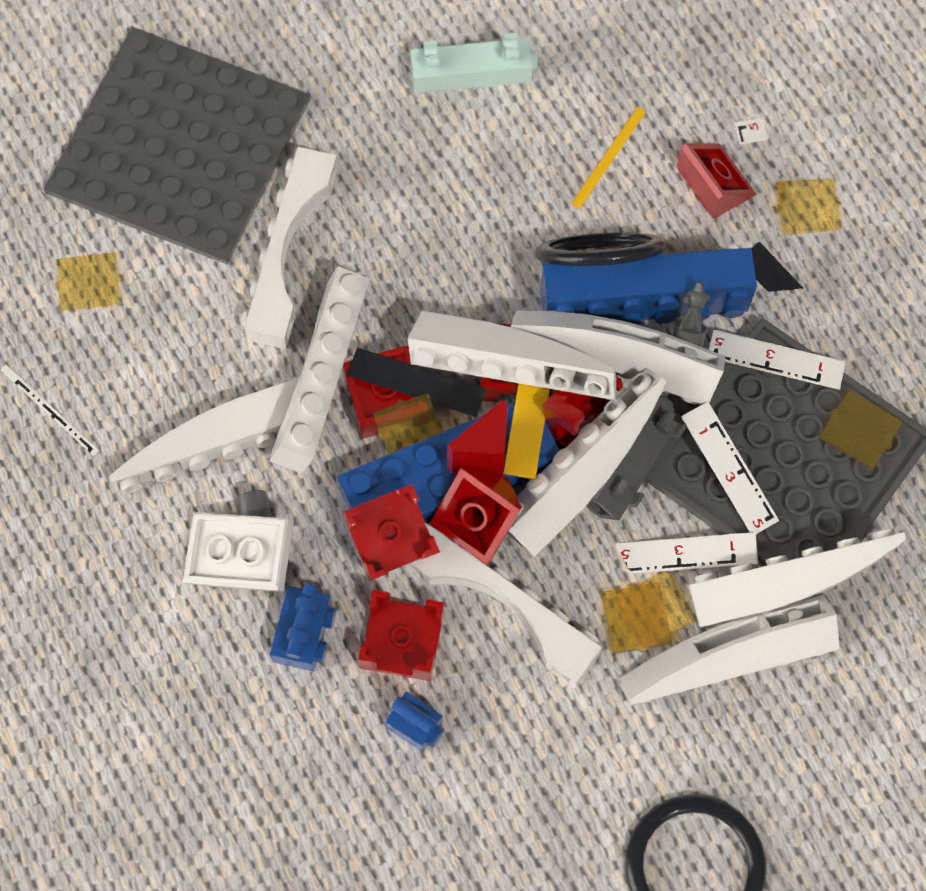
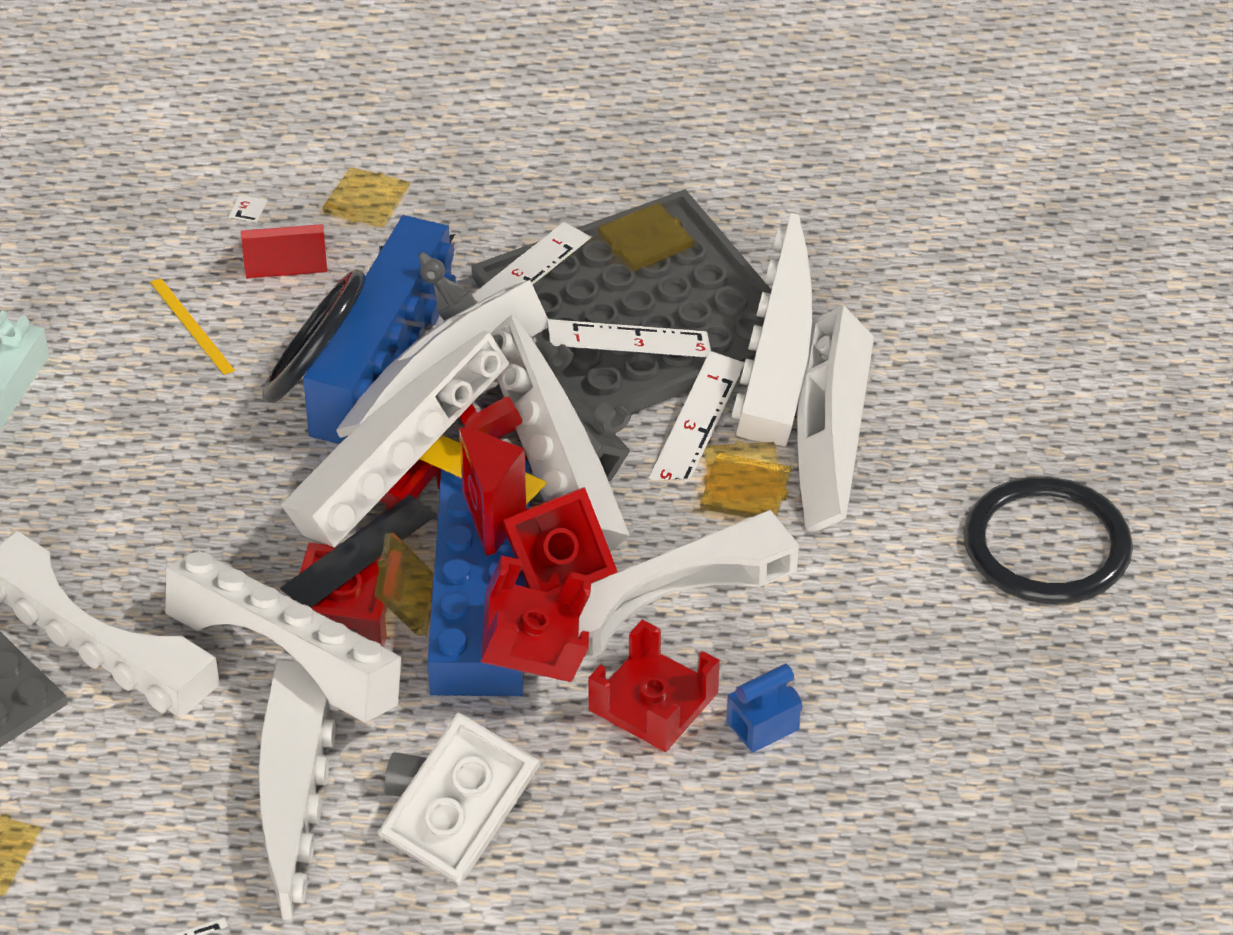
camera: 65 degrees left, 25 degrees down
(302, 628) = (589, 775): blue brick -> none

